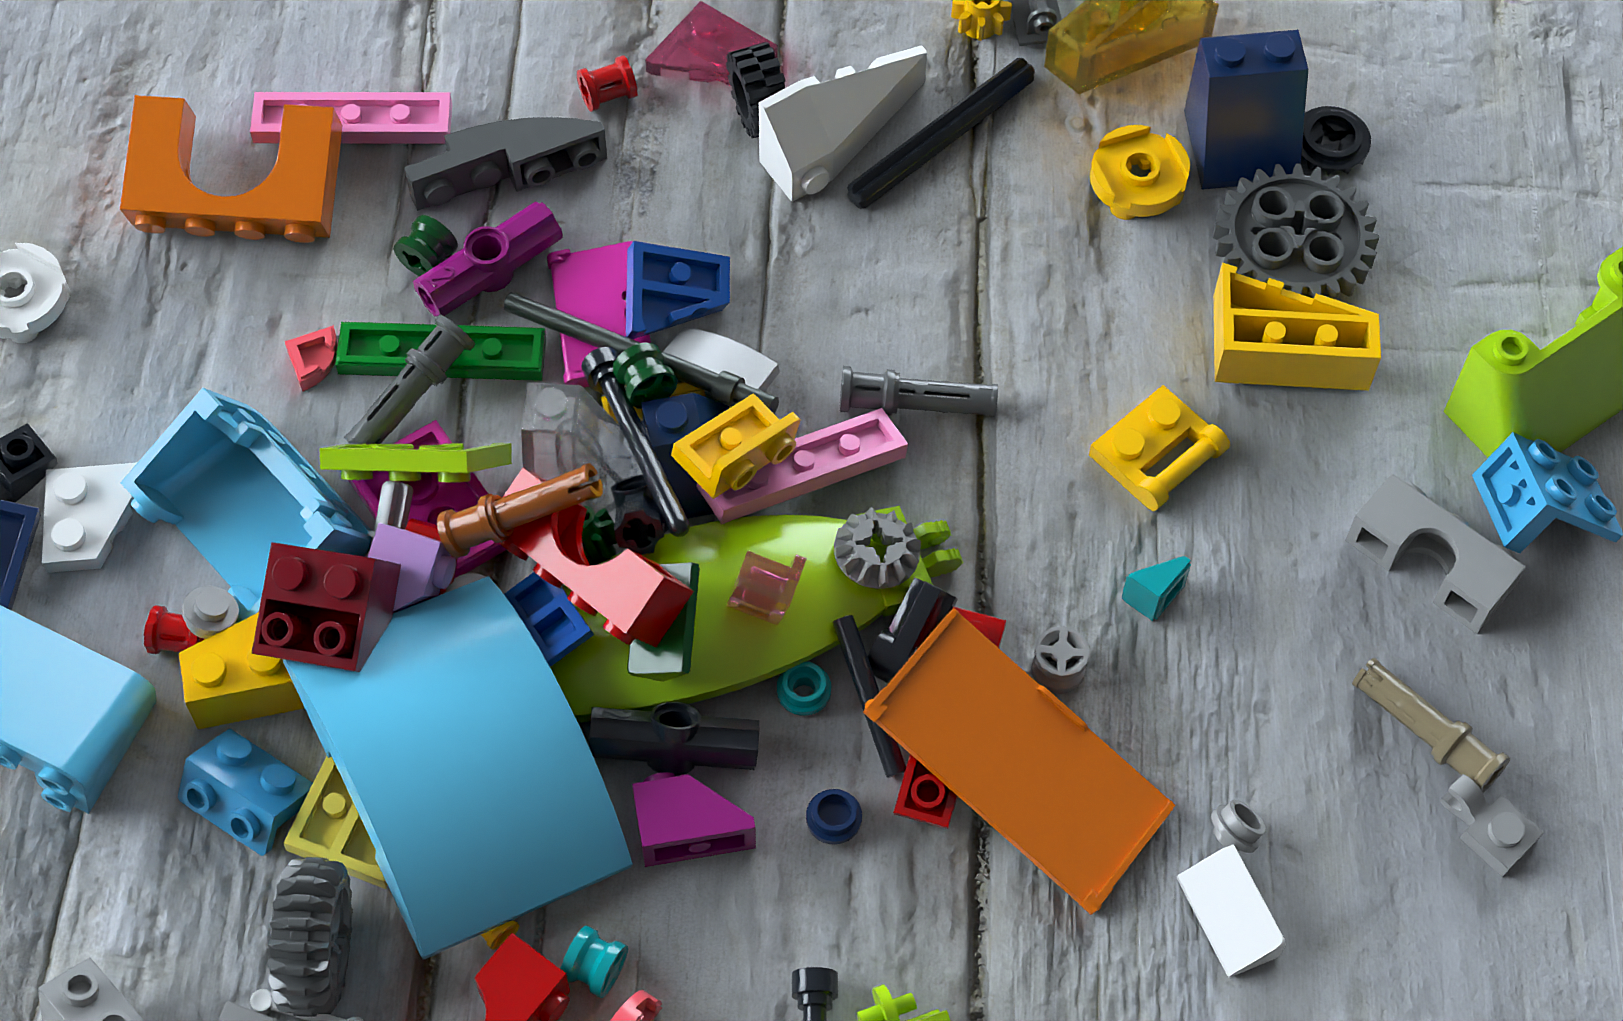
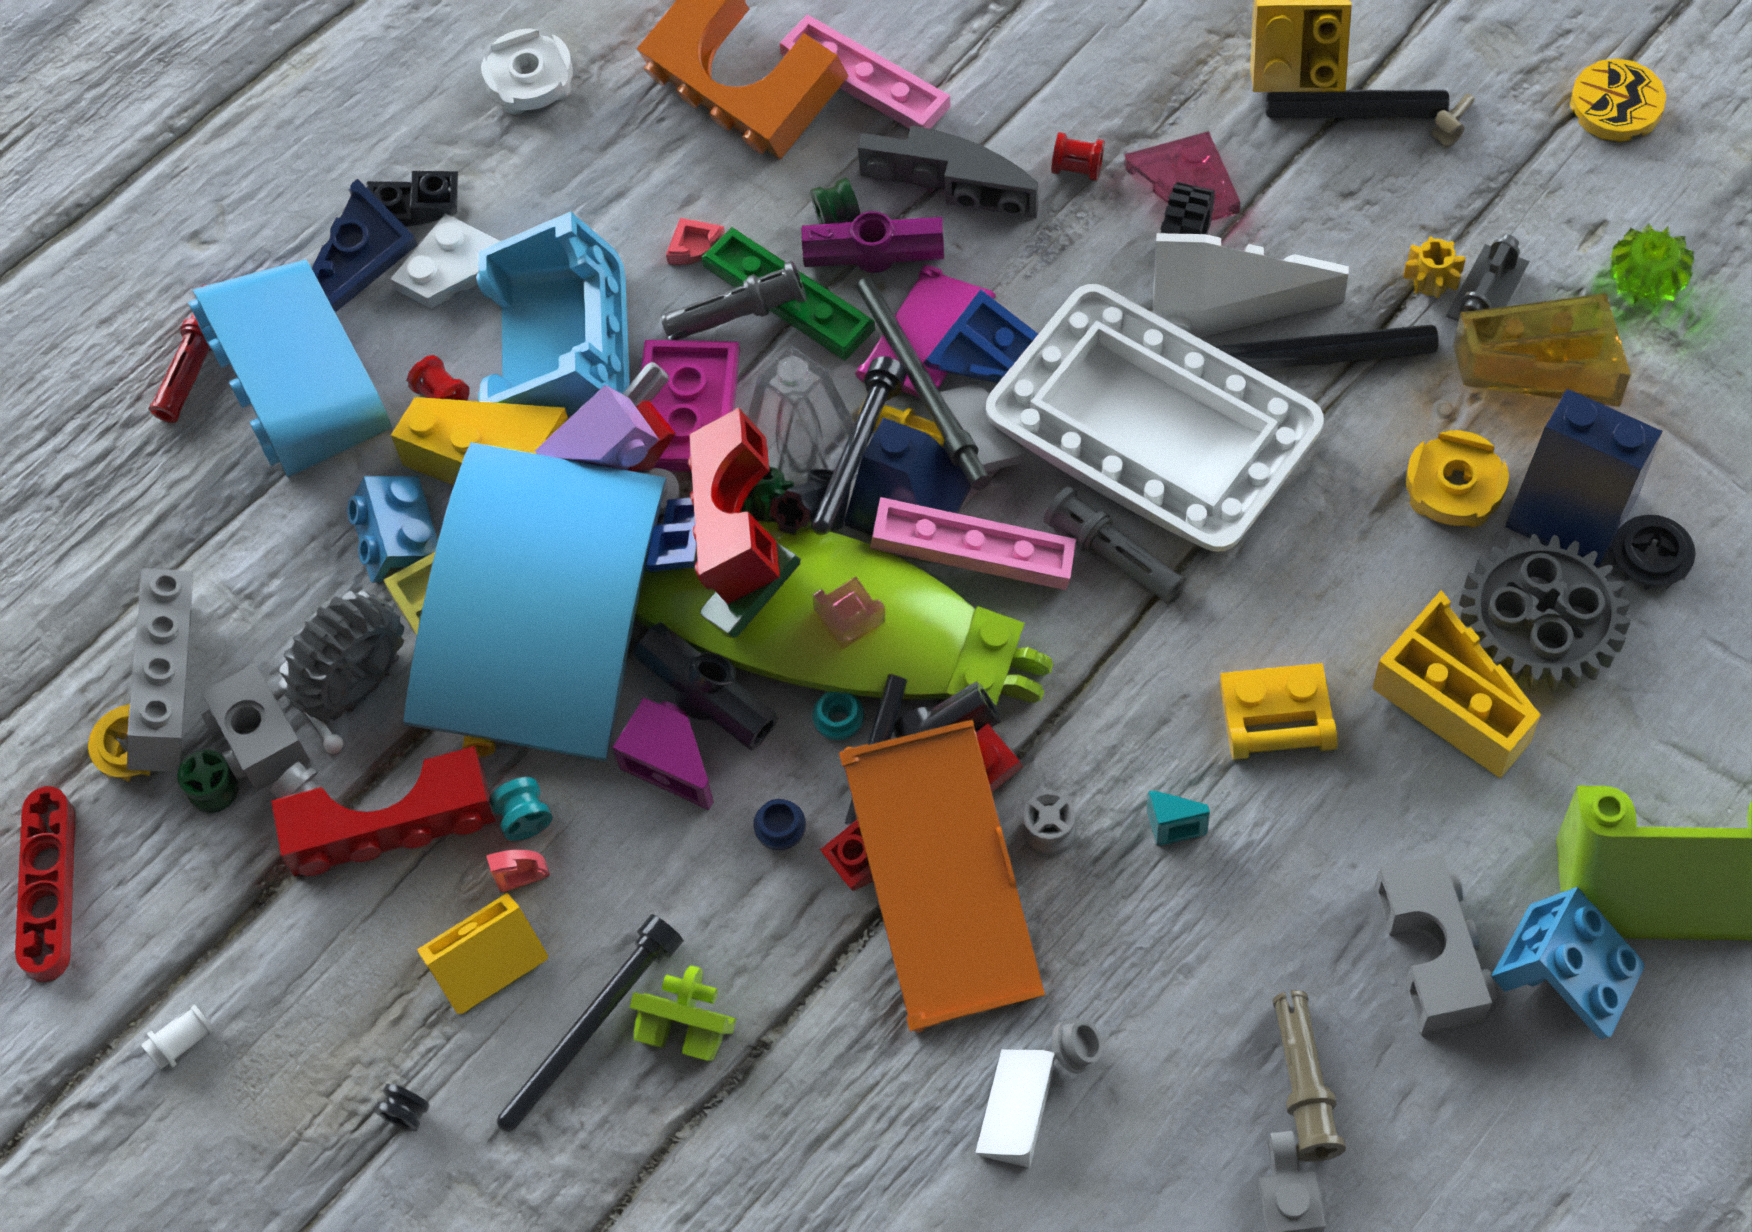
camera: 45 degrees right, 0 degrees up
(209, 611) = (459, 380): light grey plate -> none
(324, 606) = (522, 422): dark red slope -> none
(407, 463) = (683, 357): lime wing -> none
(498, 516) = (689, 433): dark orange pin -> none
(644, 374) = (902, 396): dark green wheel -> none
(736, 445) = (919, 492): yellow bracket -> none
(863, 564) = (975, 661): light grey gear -> none
(865, 265) = (1154, 417): none -> white wedge

